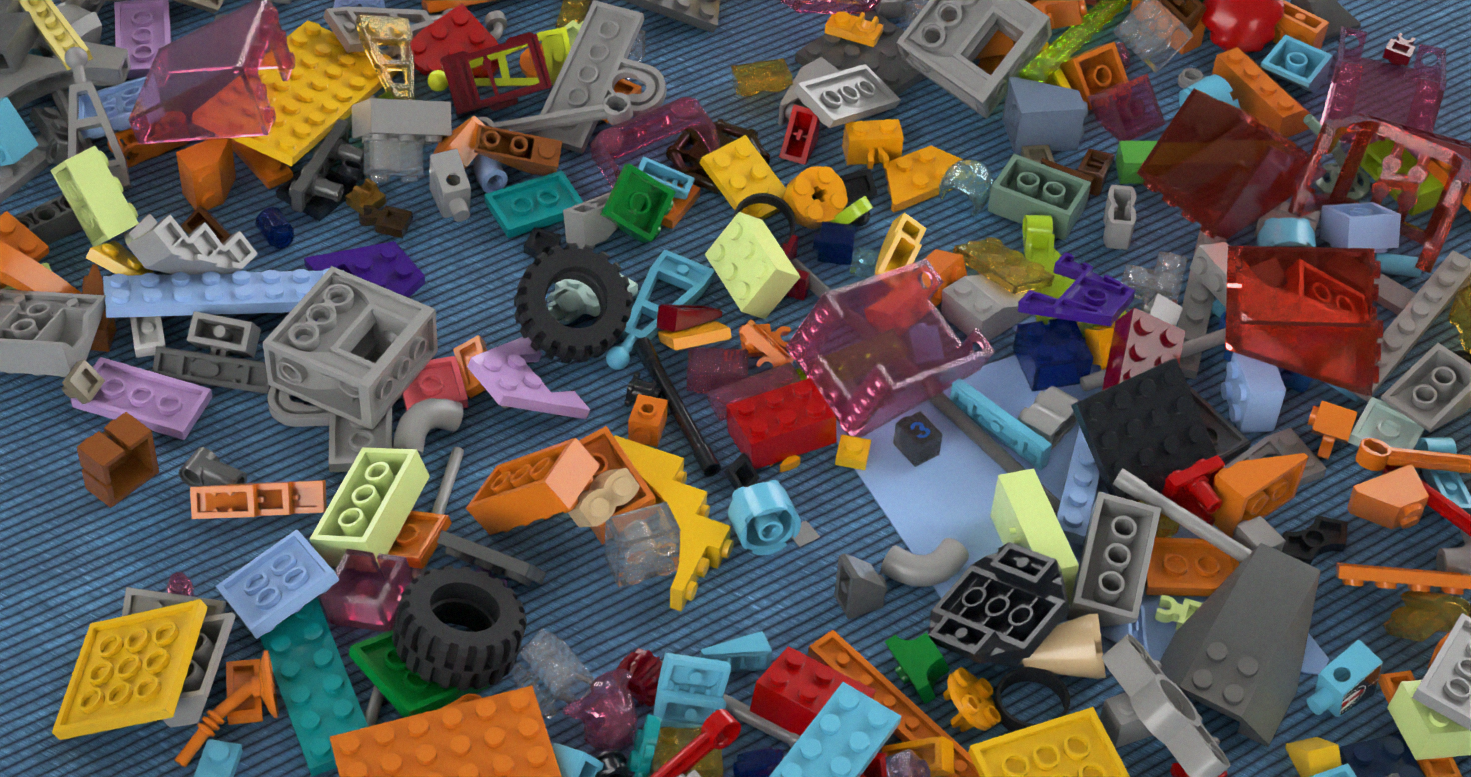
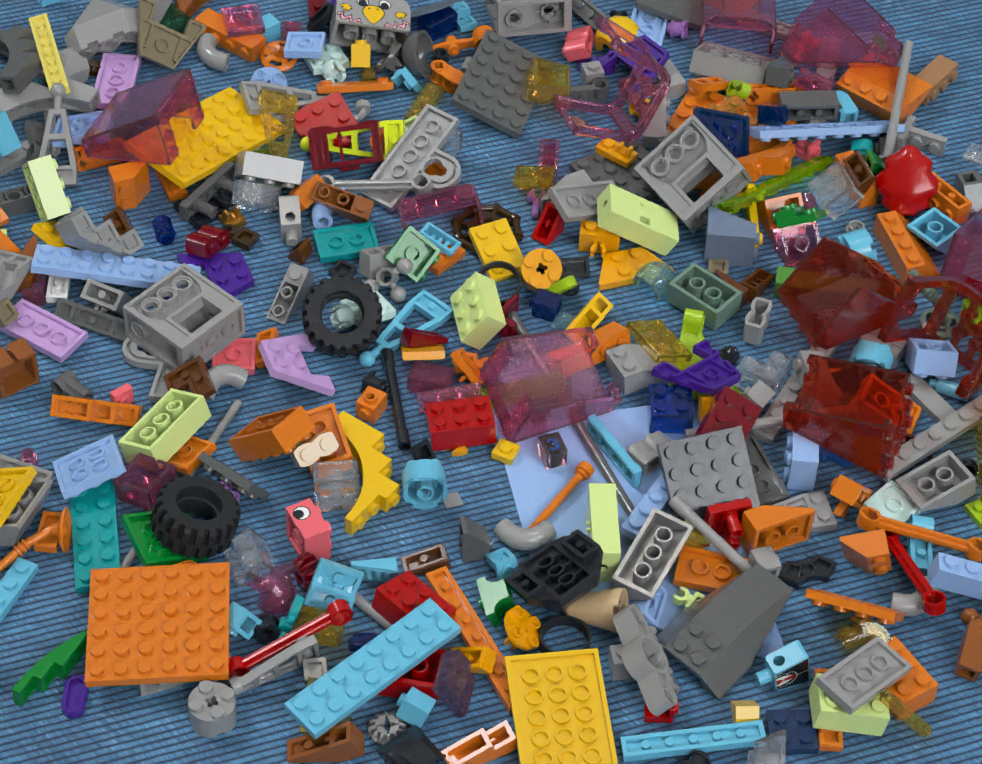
camera: 15 degrees right, 0 degrees up
(108, 23) = (94, 67): none -> dark brown plate
(119, 347) = (37, 294): none -> clear pink bracket
(291, 469) = (123, 394): none -> coral plate
(343, 233) = (207, 241): none -> dark red brick
(389, 423) = (192, 375): none -> reddish brown plate
(476, 226) = (301, 251): none -> reddish brown slope
(483, 286) = (291, 293): none -> light grey slope
(625, 616) = (308, 529): none -> coral brick
(633, 222) = (397, 293): none -> light grey piece
(767, 42) = (549, 153): none -> clear pink brick
(770, 109) = (531, 197): none -> medium lavender bar
(800, 627) = (426, 560): none -> reddish brown slope
(909, 608) = (502, 562): none -> medium azure bracket
(920, 110) = (637, 219): none -> yellowish green brick
(968, 462) = (582, 472): none -> orange piece
(1101, 265) = (730, 353): none -> black plate
(1116, 73) = (794, 215): none -> green plate

